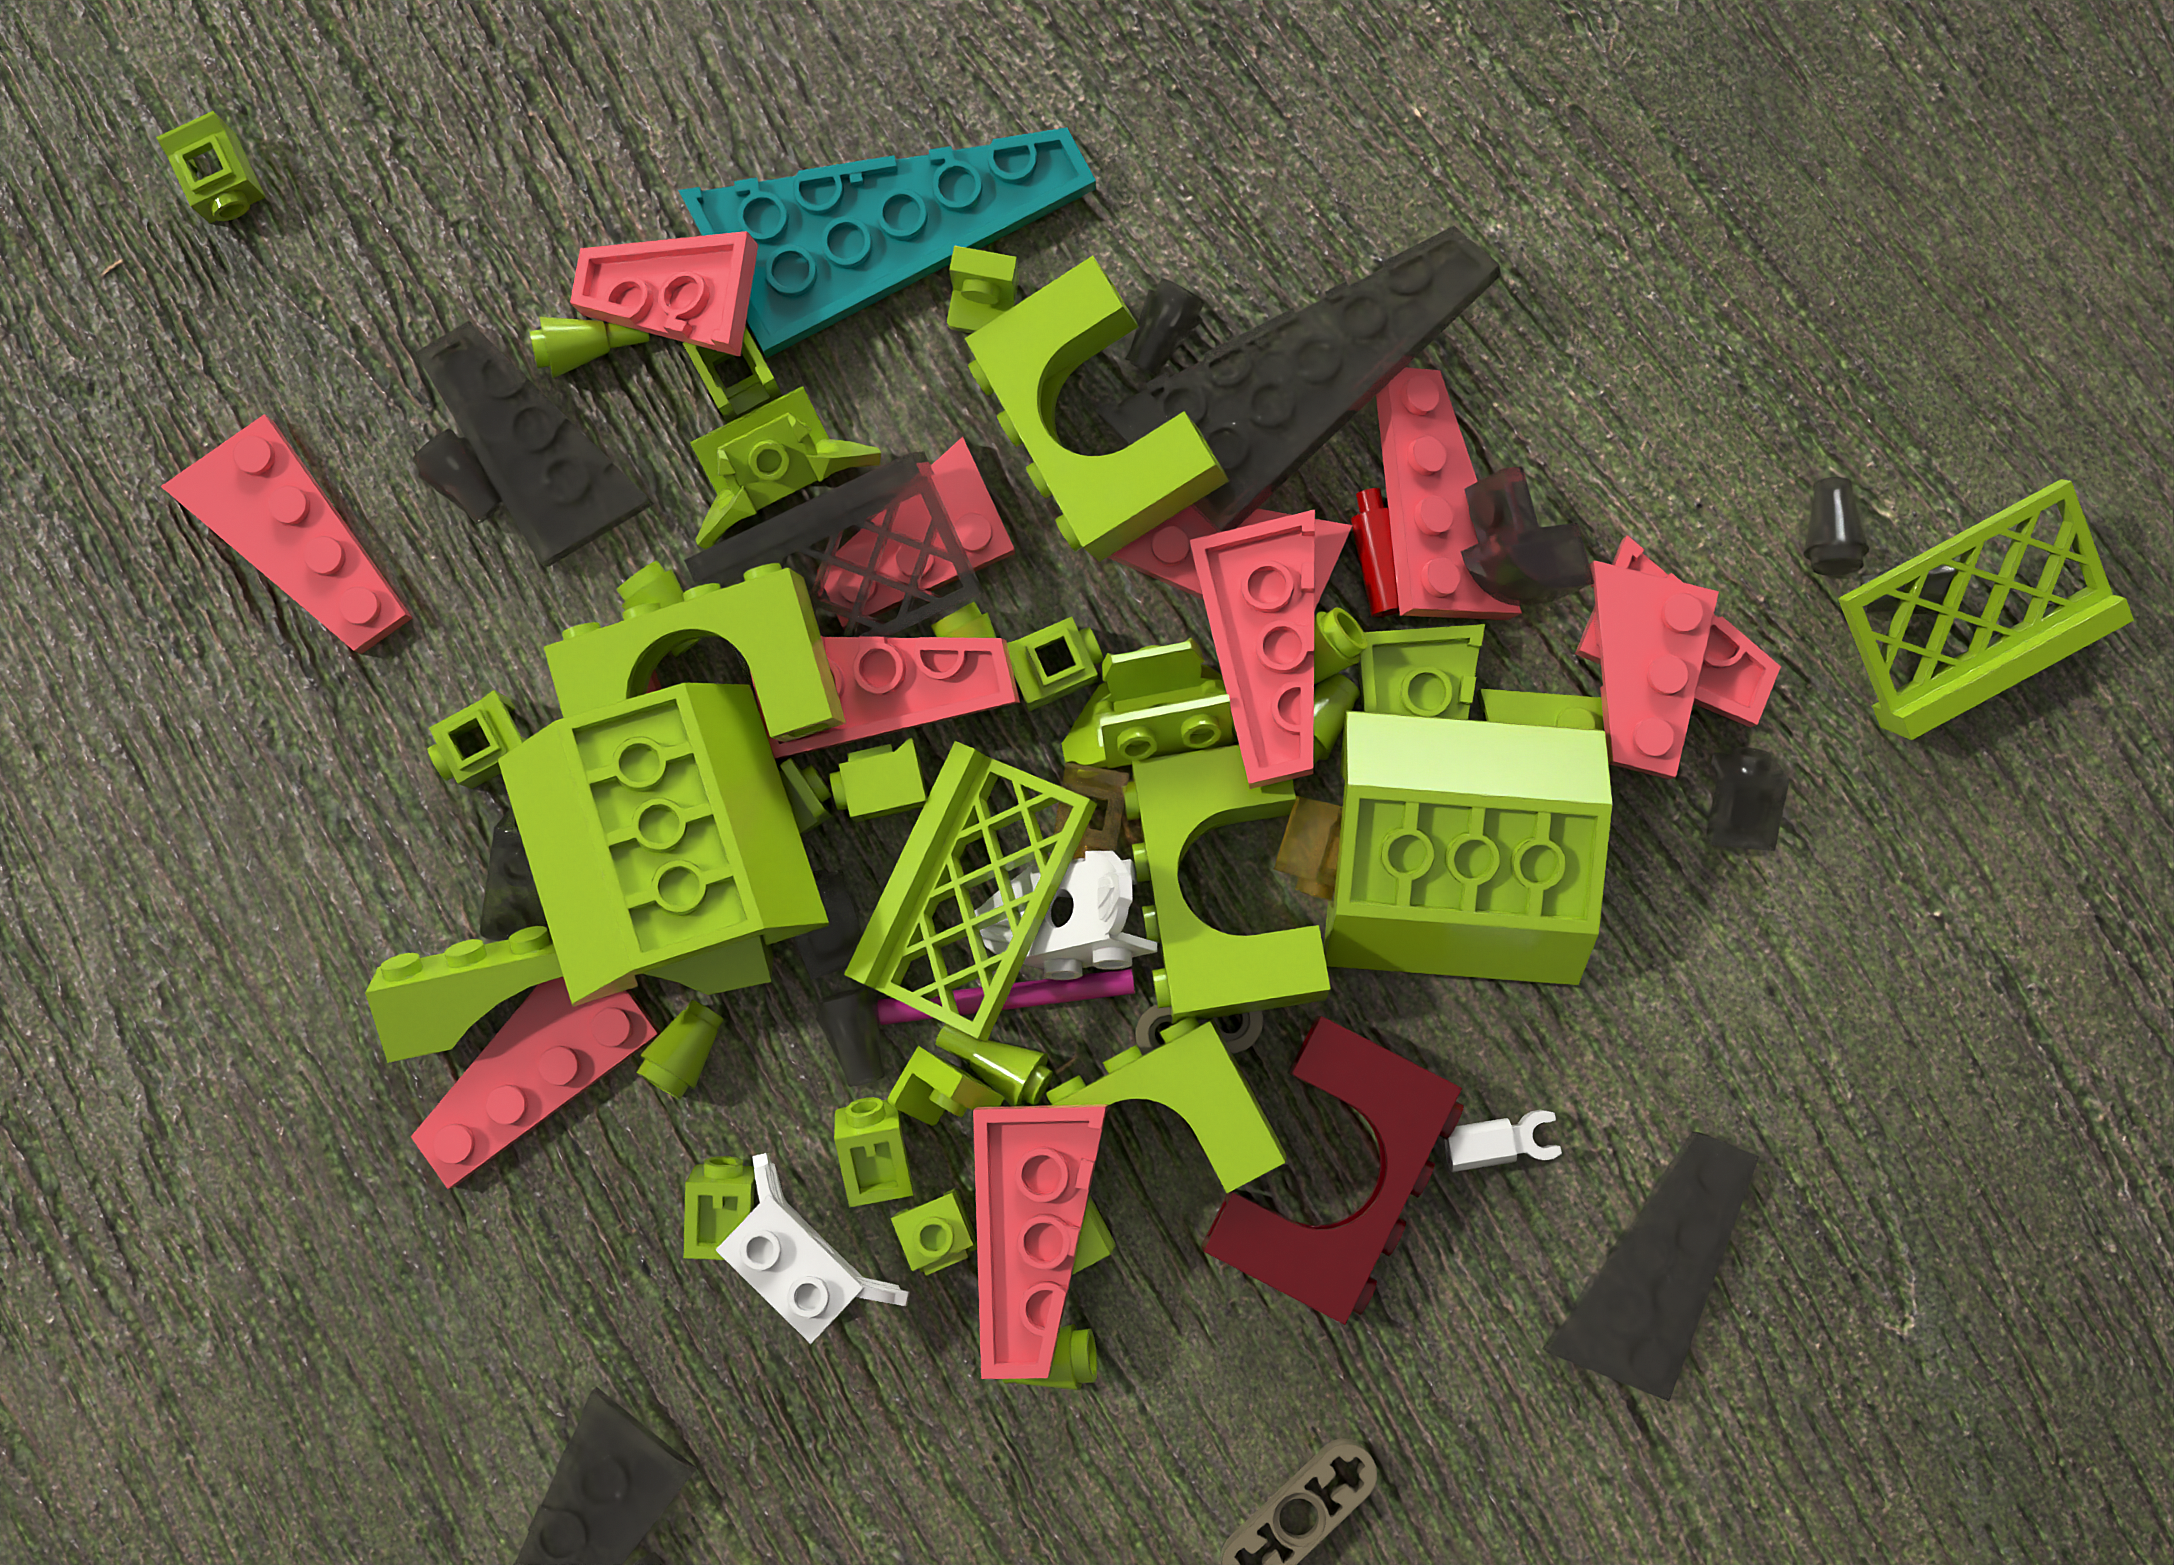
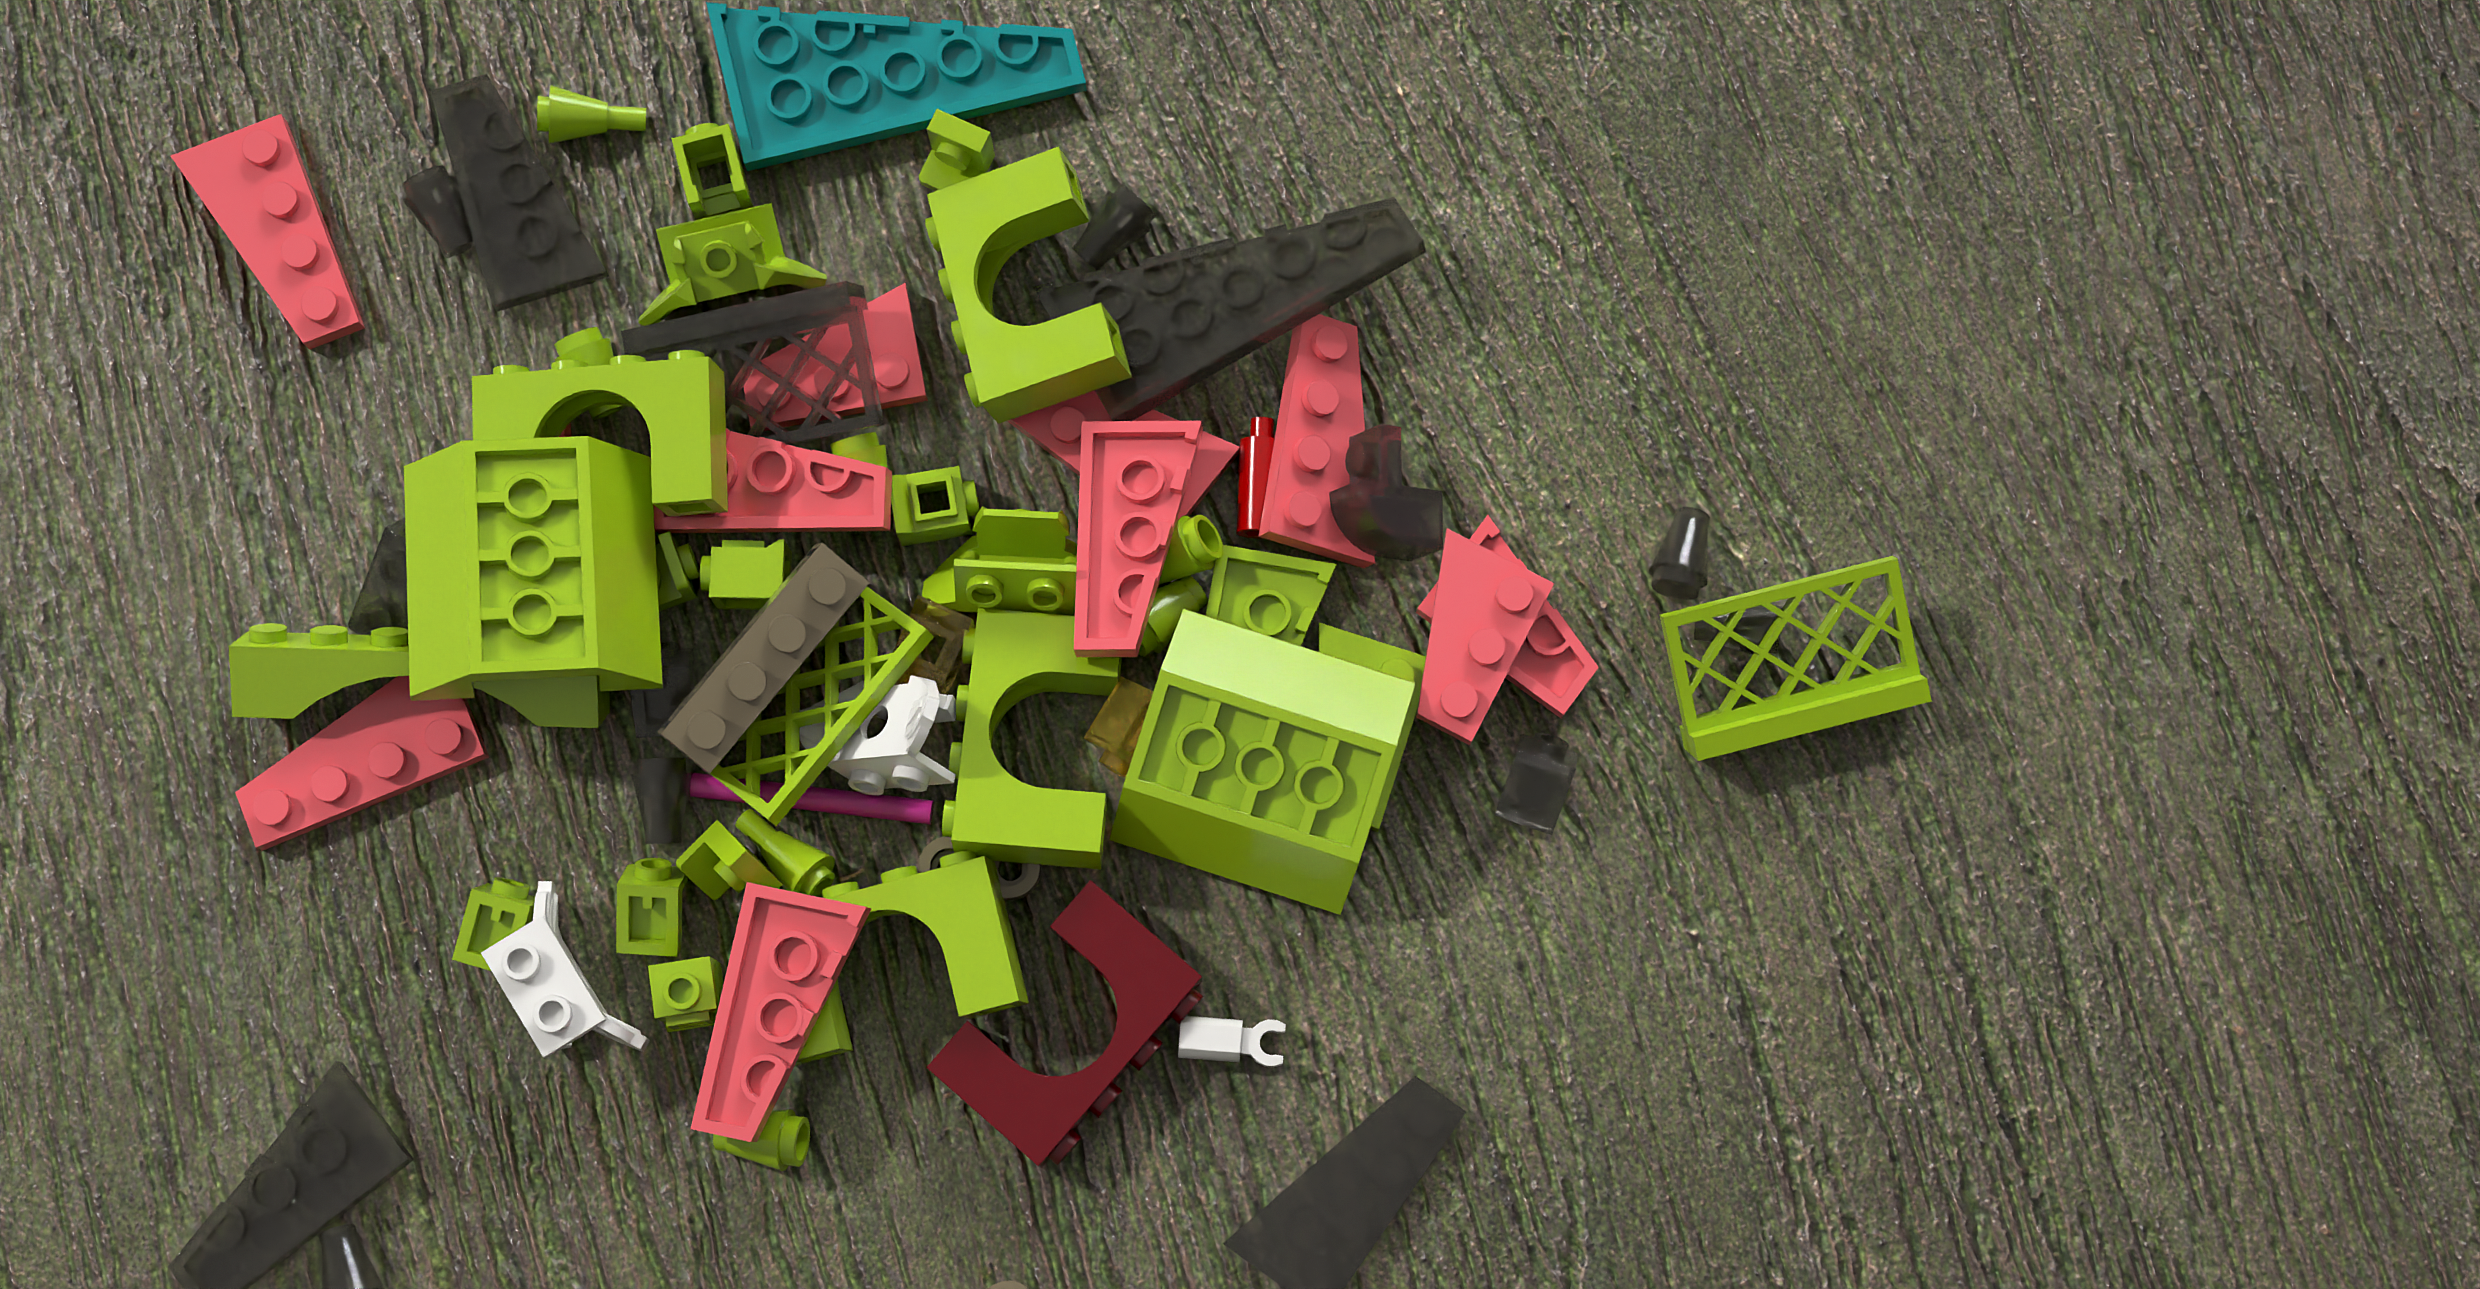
camera: 10 degrees right, 5 degrees down
(494, 718) = (388, 474): lime window -> none
(671, 287) = (675, 87): coral wing -> none
(681, 1050) = (501, 774): lime cone -> none
(928, 870) = (763, 657): none -> dark tan brick

